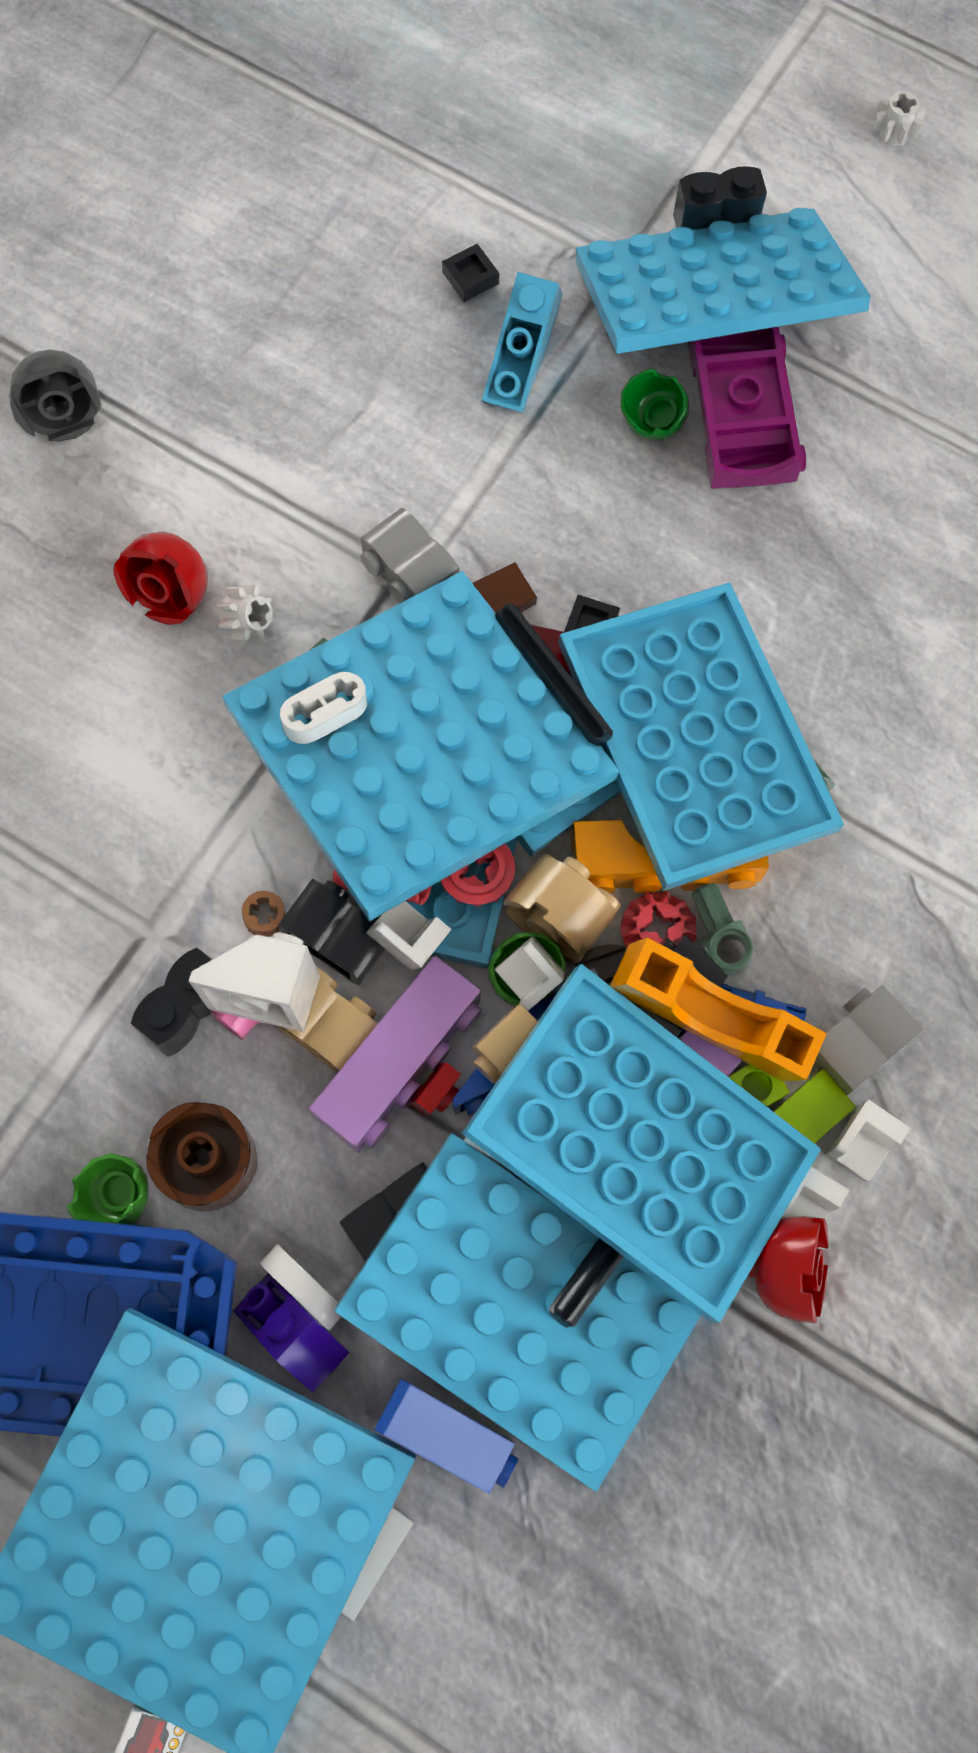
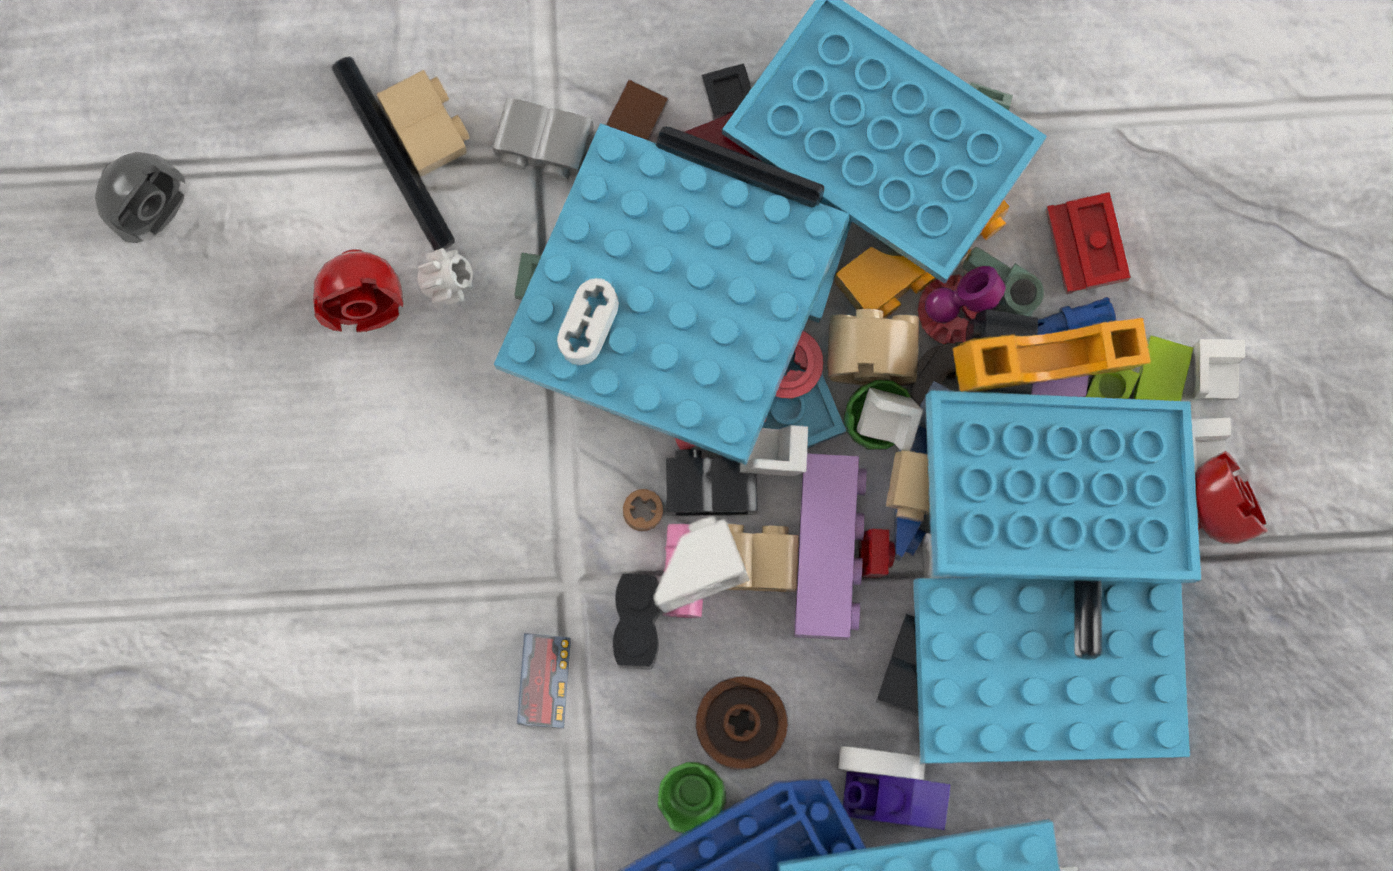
camera: 30 degrees left, 10 degrees up
(65, 998) = (543, 680): none -> slope
(280, 499) = (393, 153): none -> black axle
(321, 487) = (423, 123): none -> tan brick
(447, 1437) = (1060, 792): slope -> none
(689, 917) = (977, 291): none -> magenta plate
(819, 950) = (1088, 243): none -> red plate
(864, 1037) = (1166, 290): light grey brick -> none

